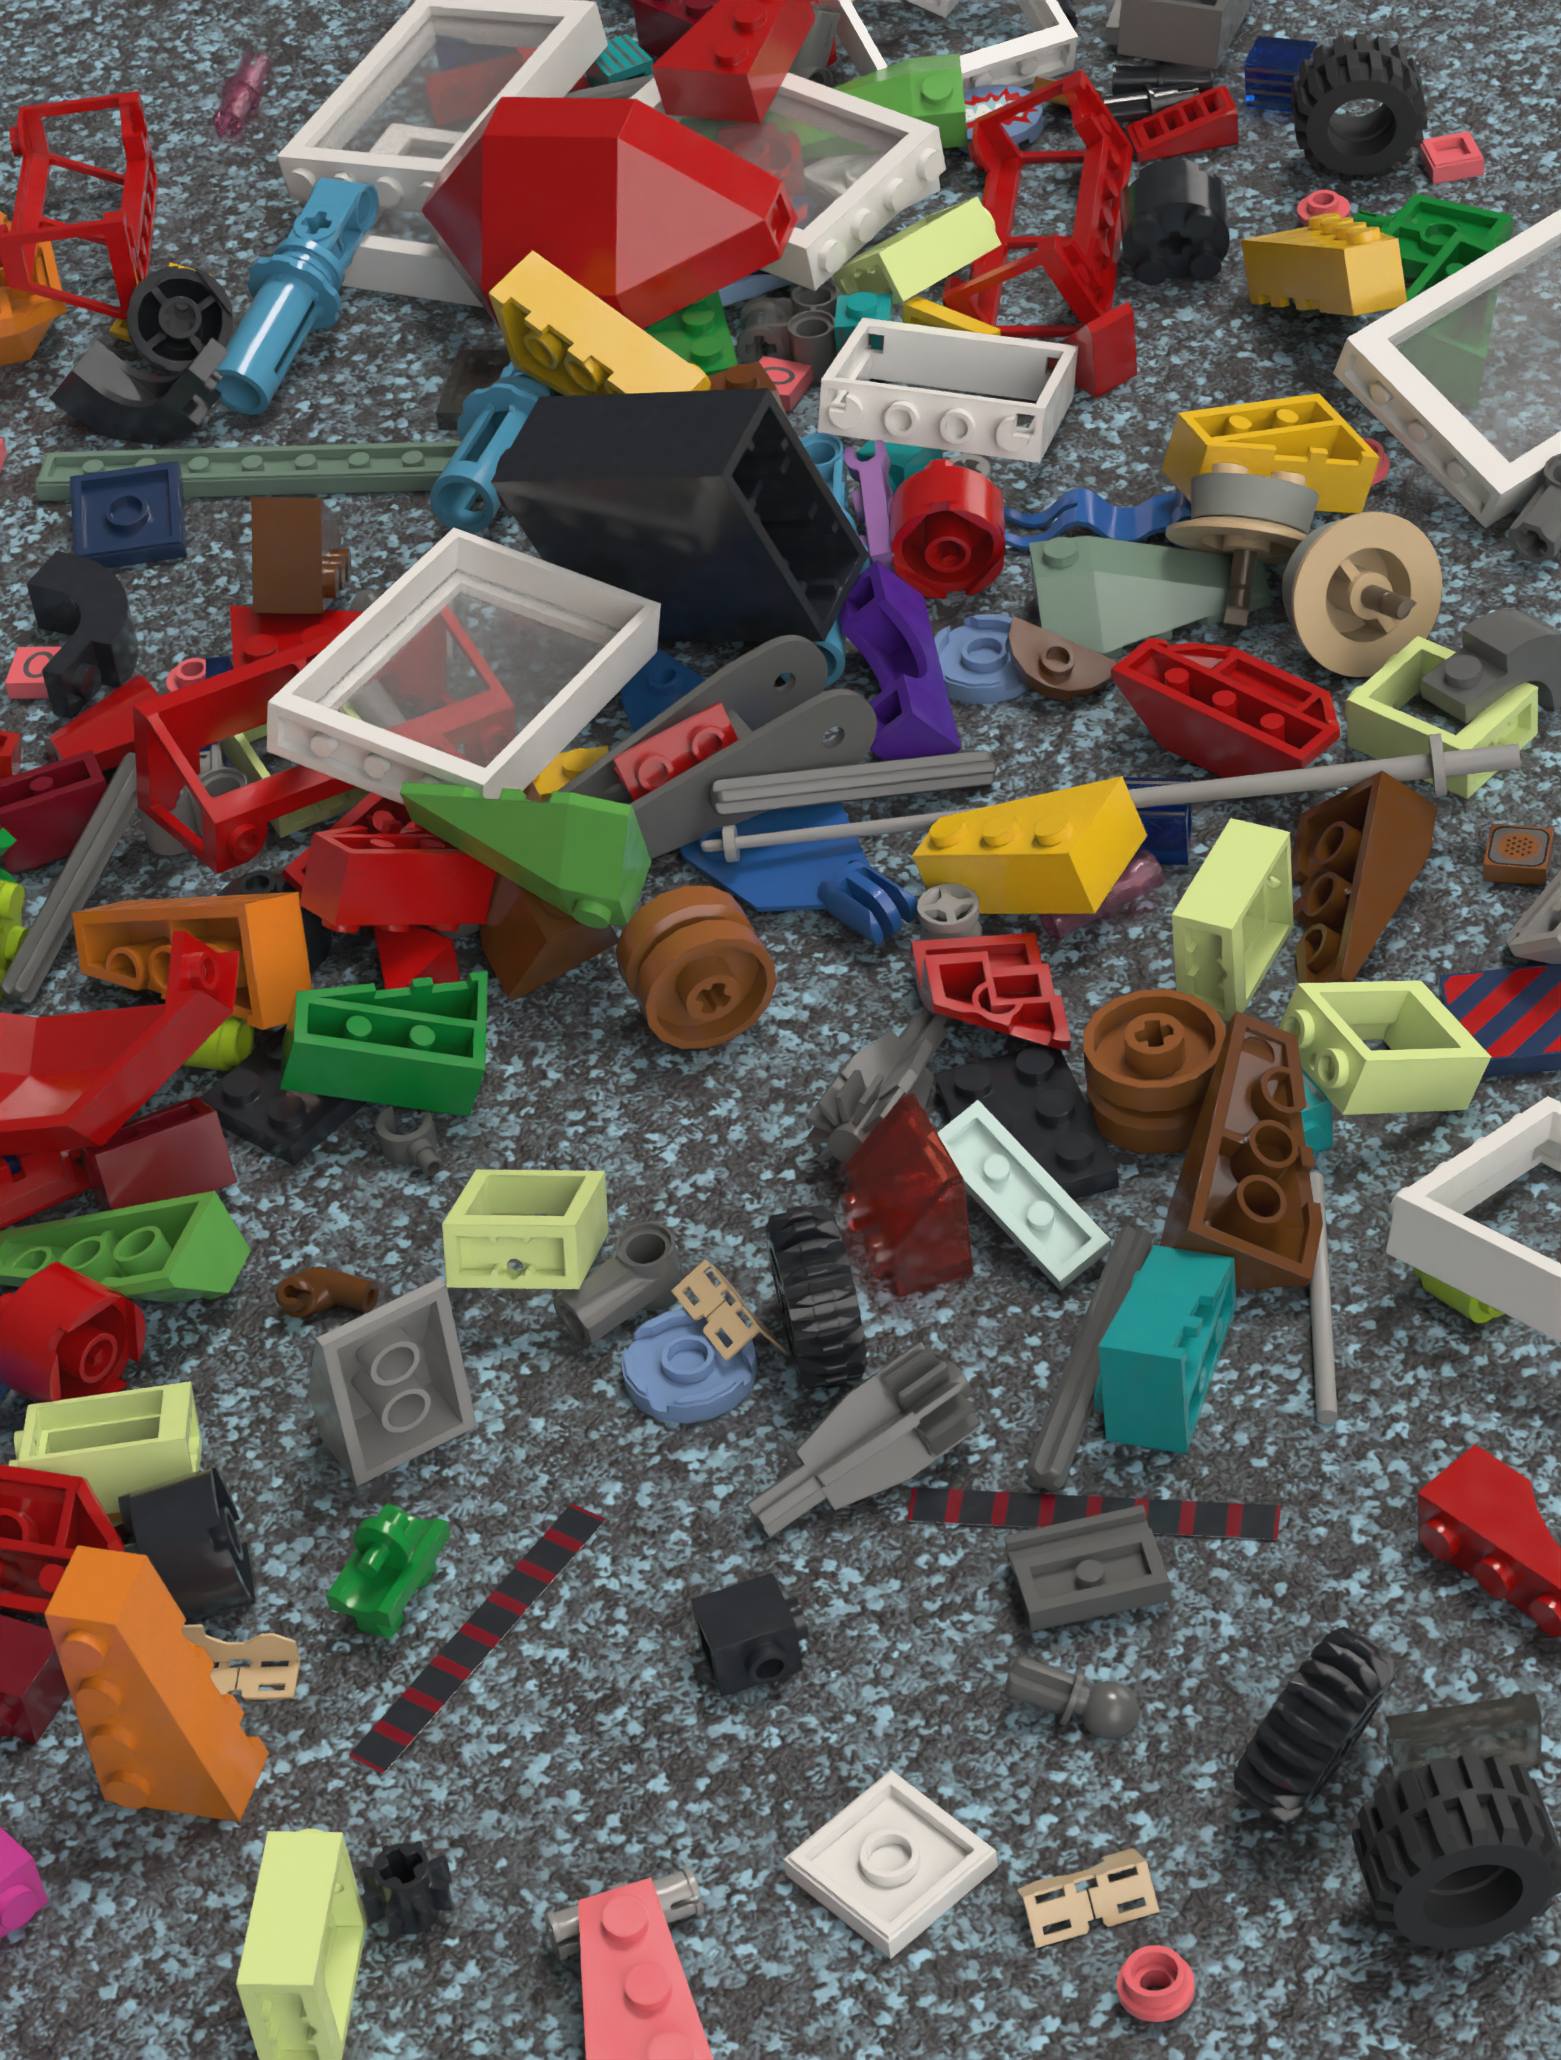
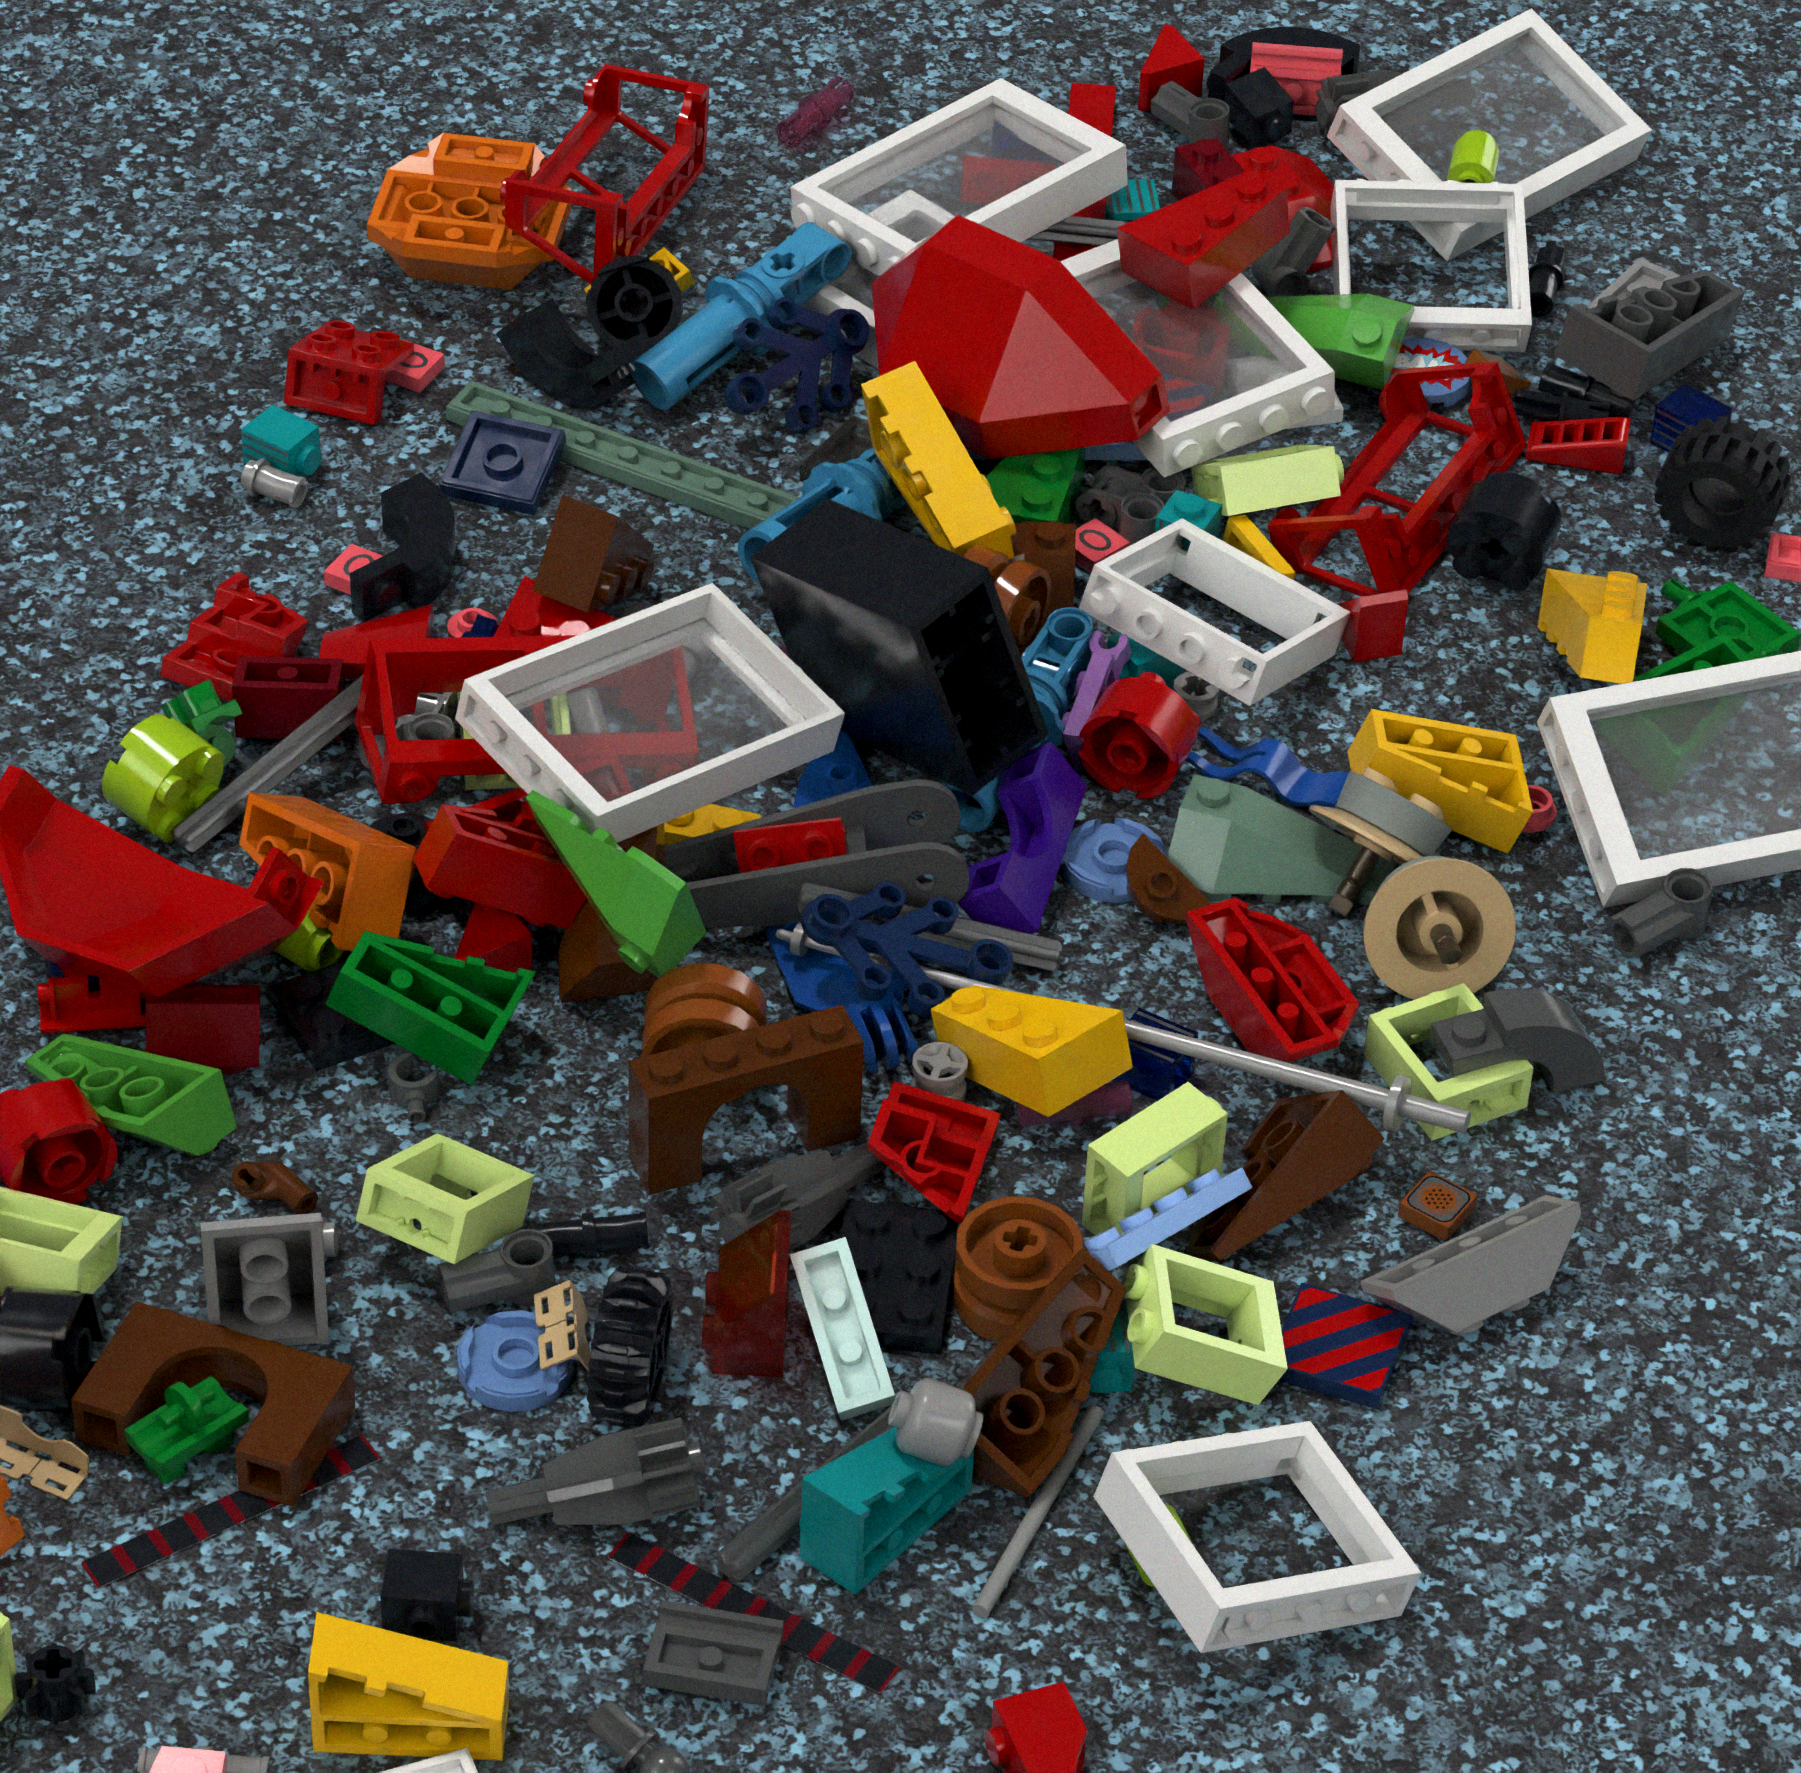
camera: 15 degrees right, 0 degrees up
(318, 1501) = (300, 1394): none -> reddish brown arch
(410, 274) = (802, 358): none -> dark blue plant
(698, 1207) = (596, 1234): none -> black pin
(717, 1025) = (683, 1087): none -> reddish brown arch
(771, 805) = (840, 924): none -> dark blue plant
(796, 1742) = (403, 1694): none -> yellow wedge
(1194, 1239) = (936, 1422): none -> light grey head
(1283, 957) = (1173, 1214): none -> light blue plate
(1321, 203) = (1650, 566): coral plate -> none

